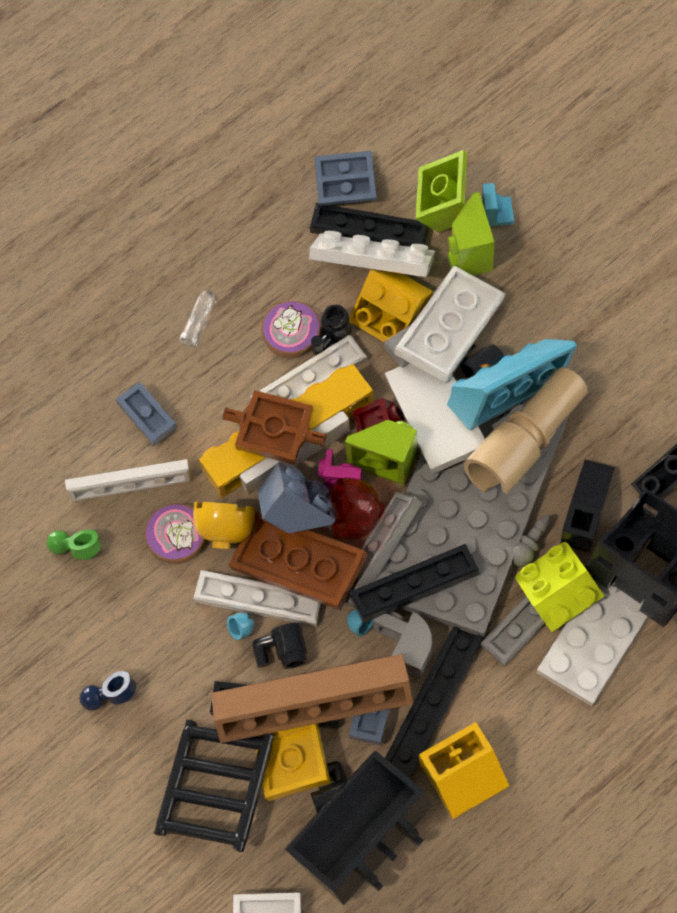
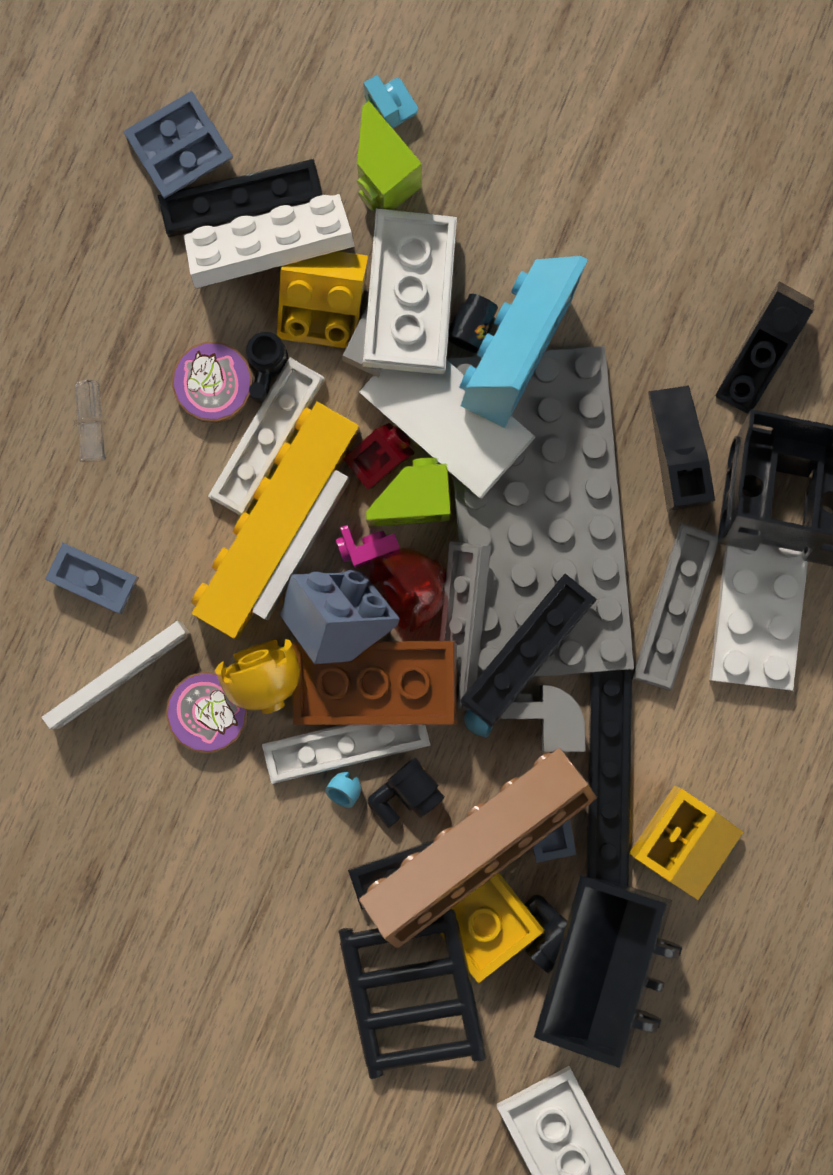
camera: 35 degrees left, 20 degrees up
(82, 544) = (74, 787): bright green plate -> none
(116, 688) = (216, 955): dark blue plate -> none
(274, 427) = (265, 534): dark orange plate -> none
(441, 191) = (316, 113): lime slope -> none
(517, 443) = (570, 425): tan piece -> none
(524, 550) = (631, 542): light grey bar -> none
(558, 586) = (692, 569): neon yellow bracket -> none

